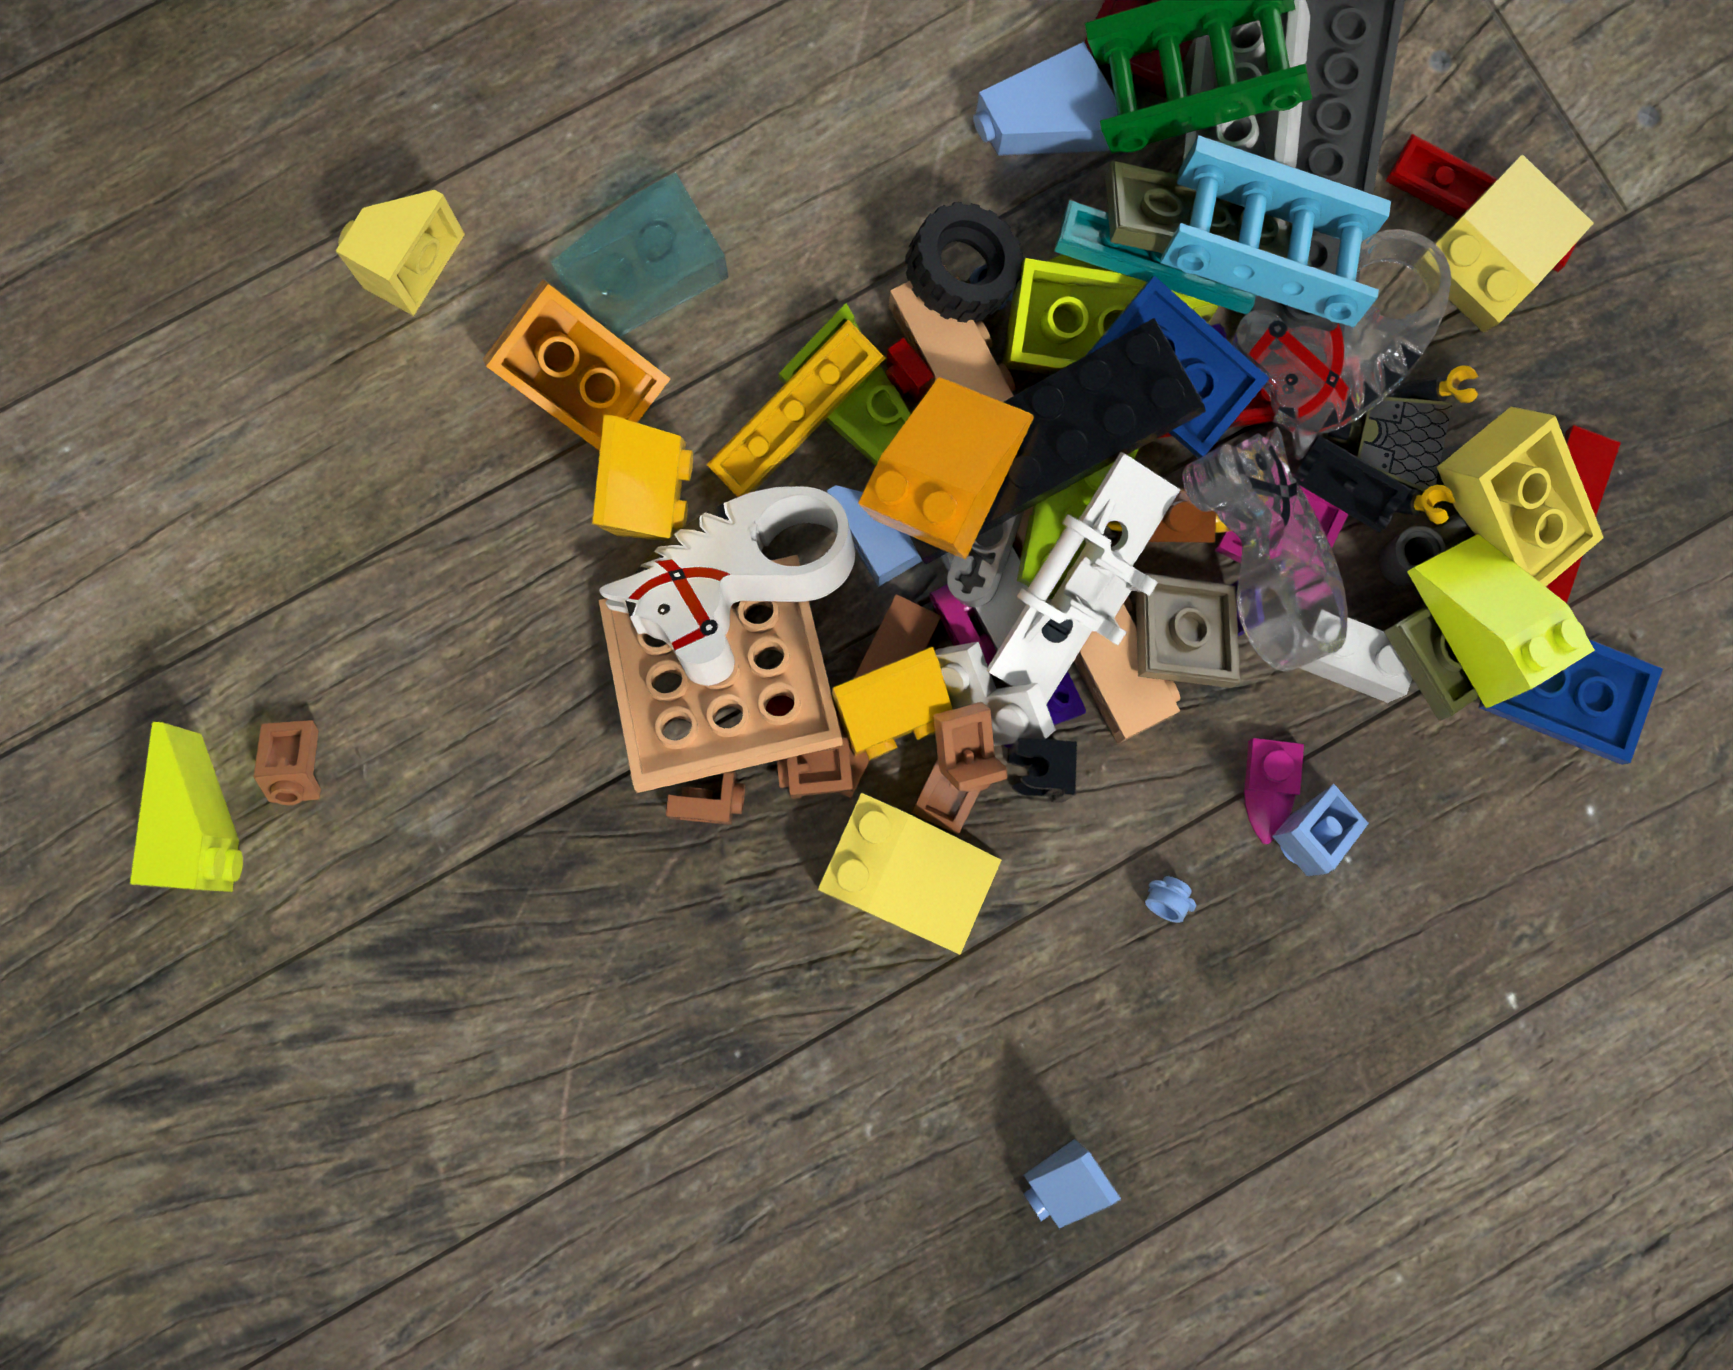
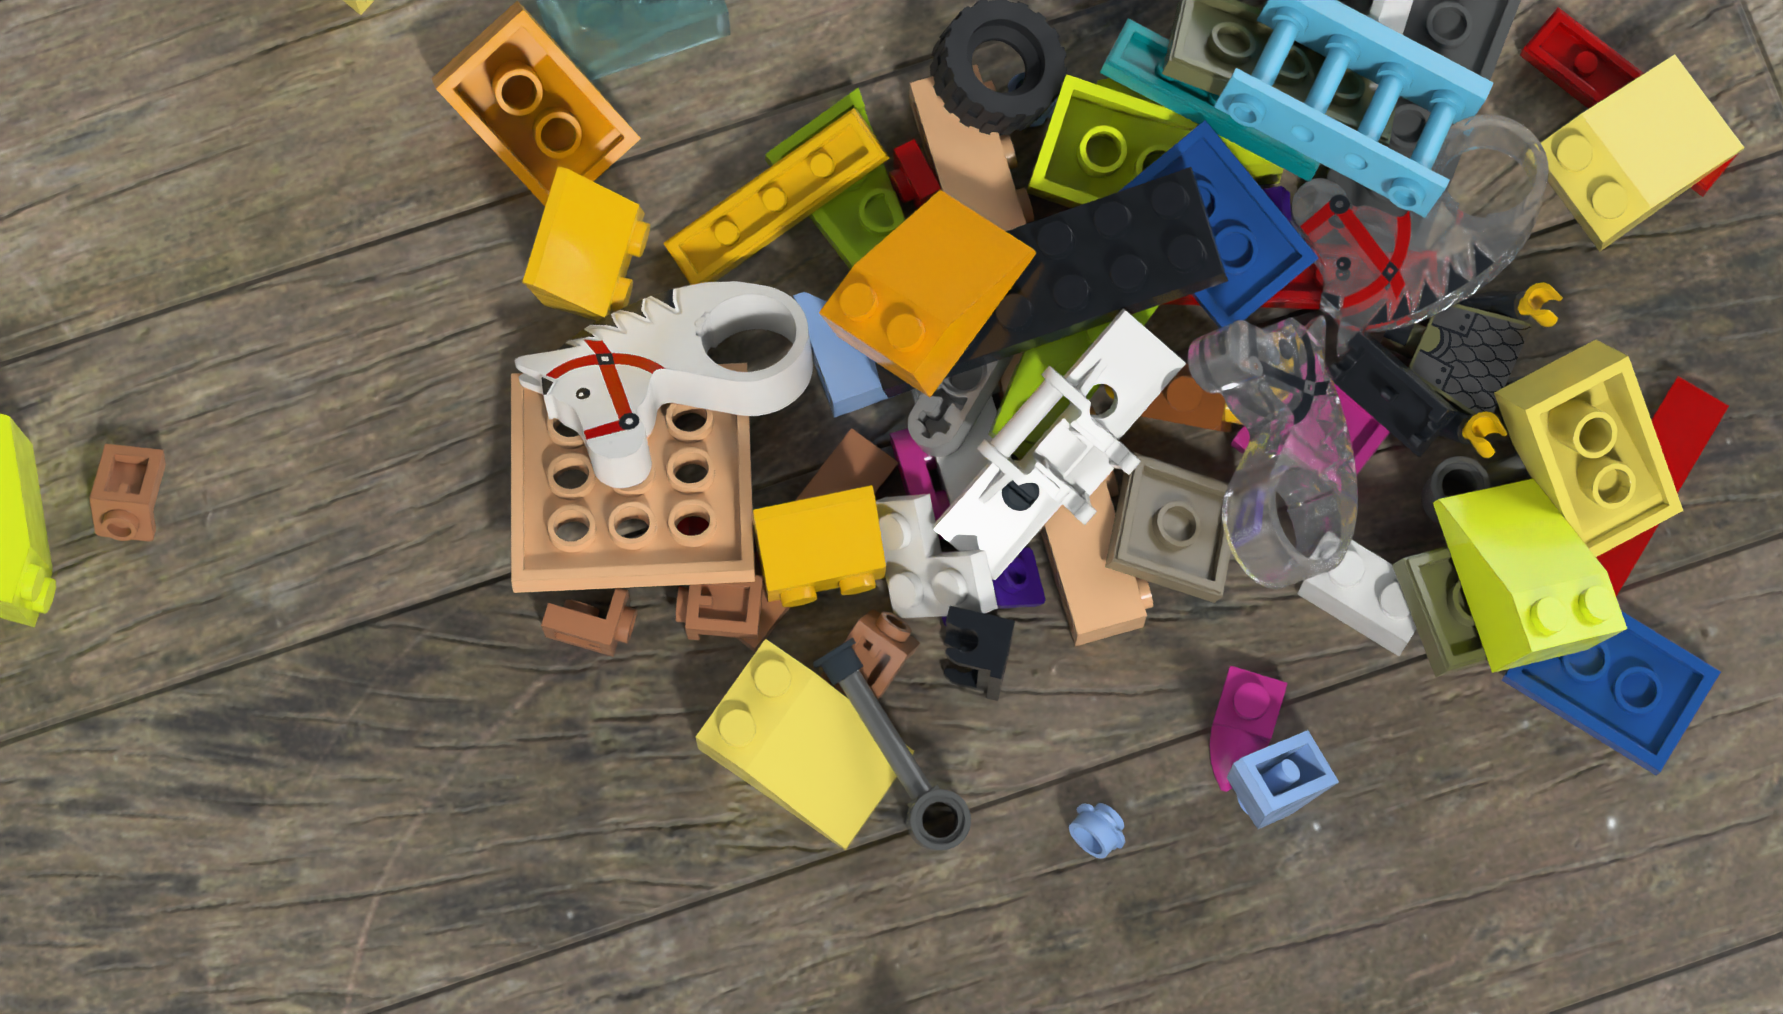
camera: 15 degrees right, 5 degrees down
(932, 804) = (843, 668): none -> dark grey piece
(967, 748) = (894, 608): nougat bracket -> none

